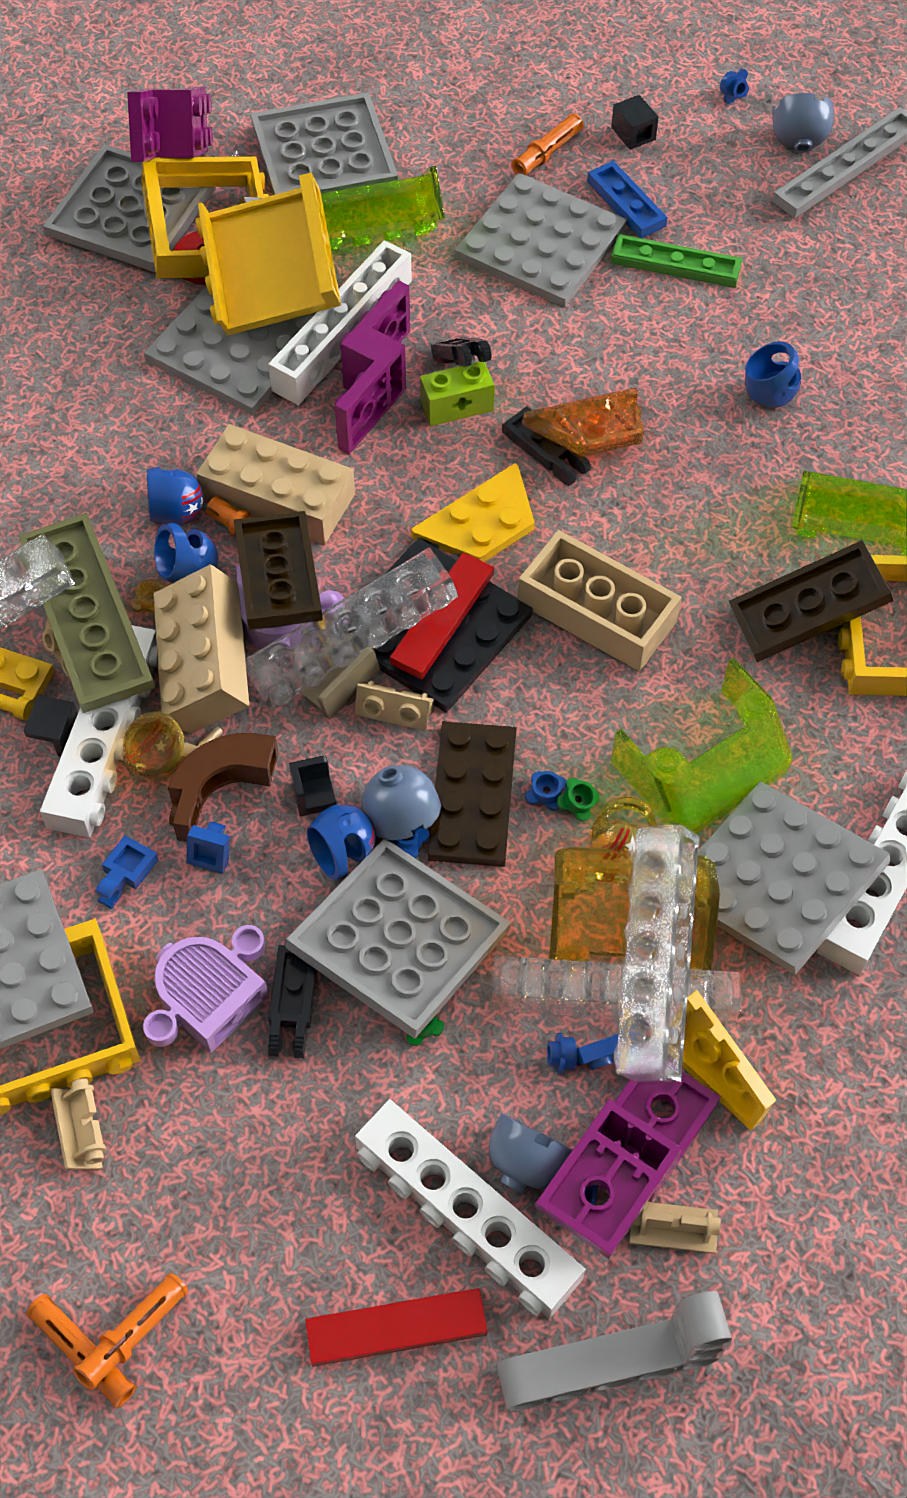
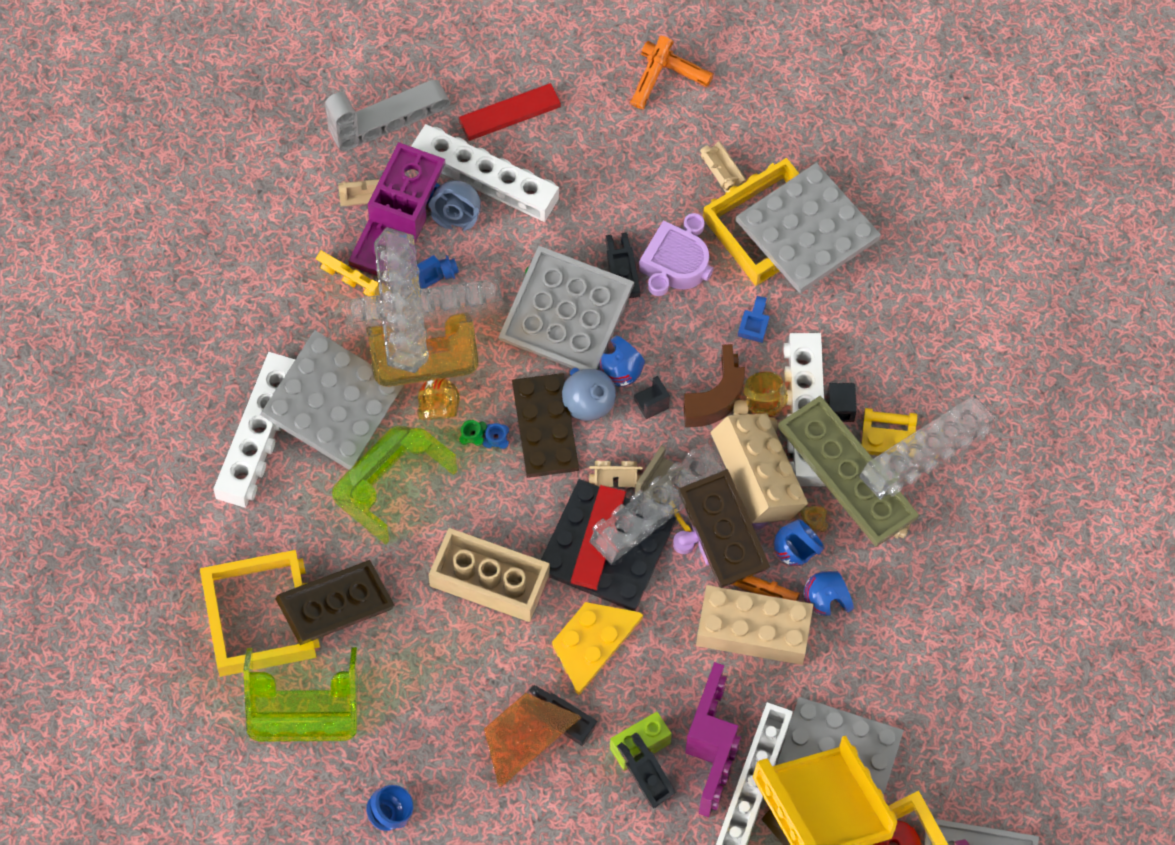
camera: 165 degrees right, 5 degrees up
(208, 847) = (705, 344): blue tile -> none

